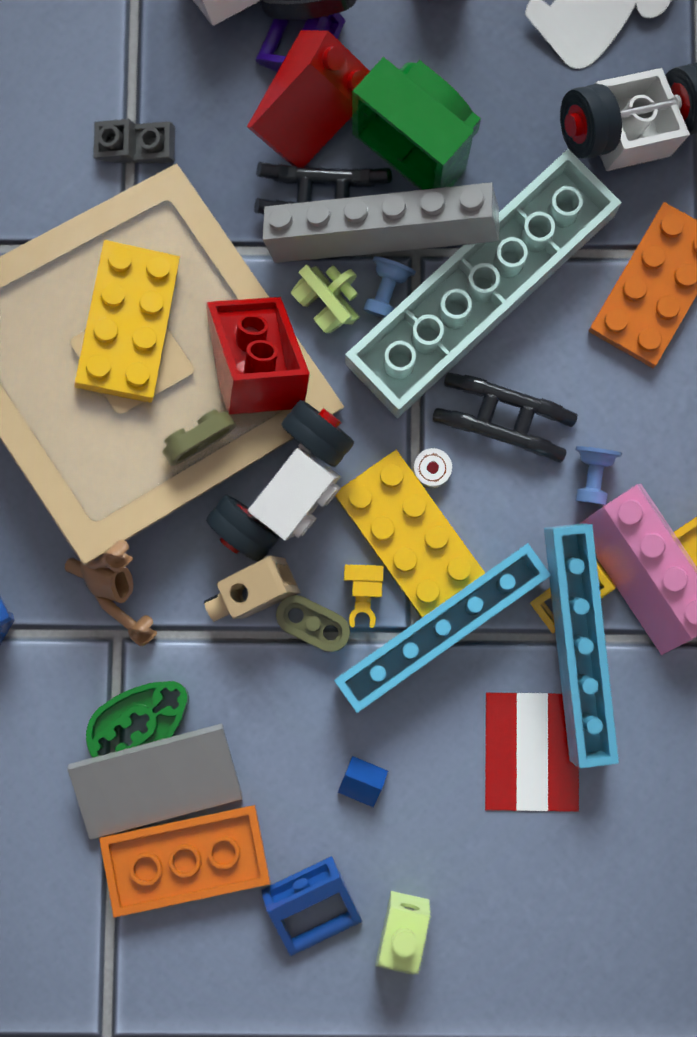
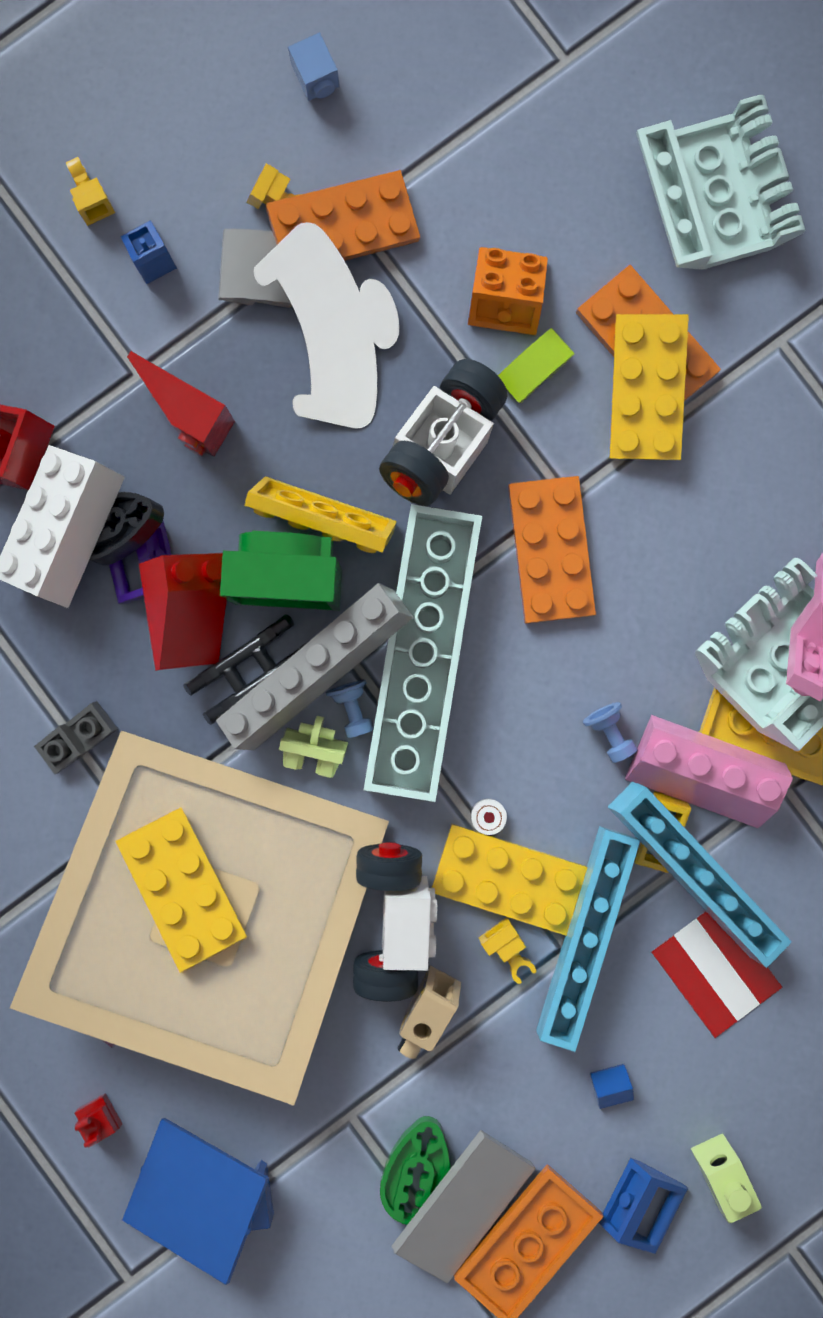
camera: 35 degrees left, 5 degrees up
(110, 582) = (324, 1090): medium nougat piece -> none
(210, 429) = (296, 955): olive plate -> none
(256, 355) = (296, 838): red slope -> none
(314, 622) = (489, 1003): olive plate -> none
(512, 147) = (314, 511): none -> yellow plate
(519, 435) = (502, 757): black piece -> none

